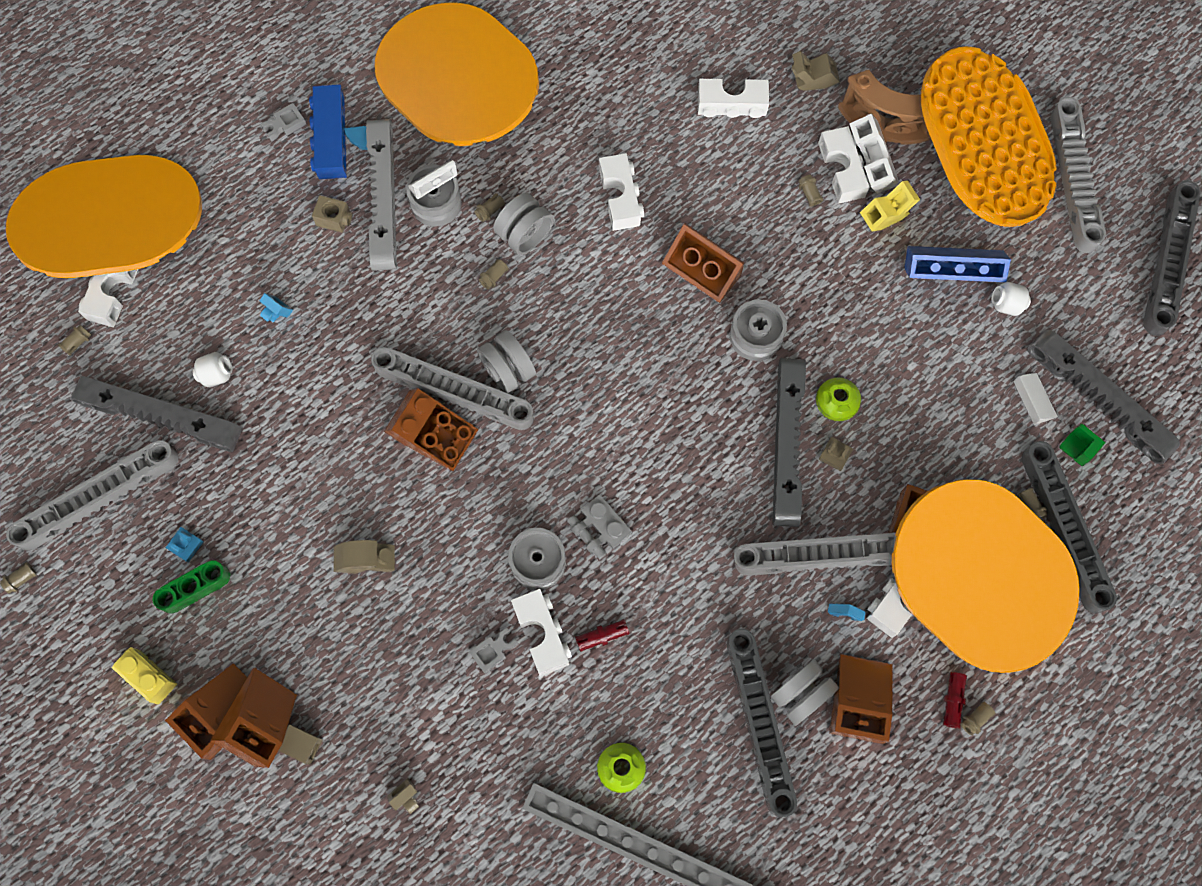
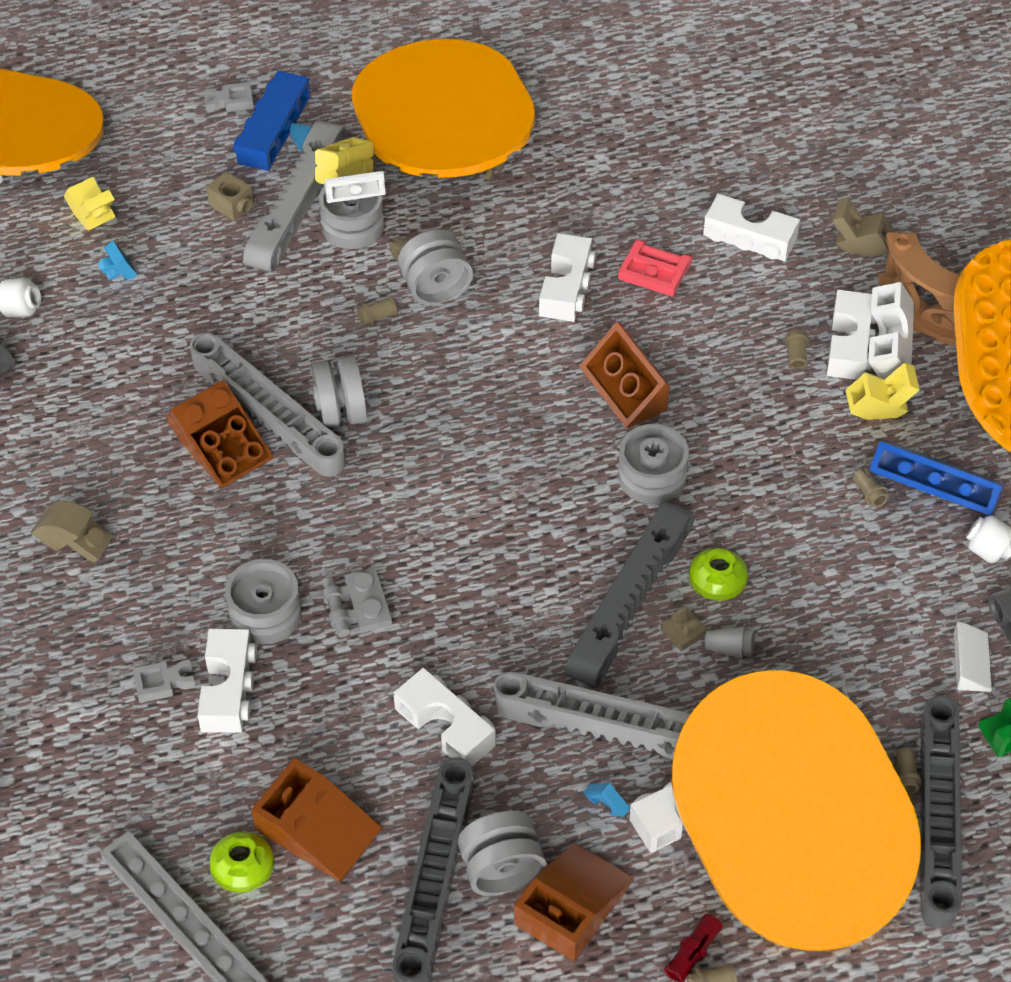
camera: 25 degrees right, 20 degrees down
(225, 263) = (90, 204): none -> light yellow brick
(407, 152) = (344, 159): none -> light yellow brick
(602, 635) = (296, 713): dark red pin -> none
(662, 718) = (314, 820): none -> dark orange slope
(678, 163) = (654, 268): none -> coral plate
(732, 601) = (427, 698): none -> white arch
(874, 452) = (731, 641): none -> light grey cone
(911, 287) = (874, 492): none -> dark tan pin

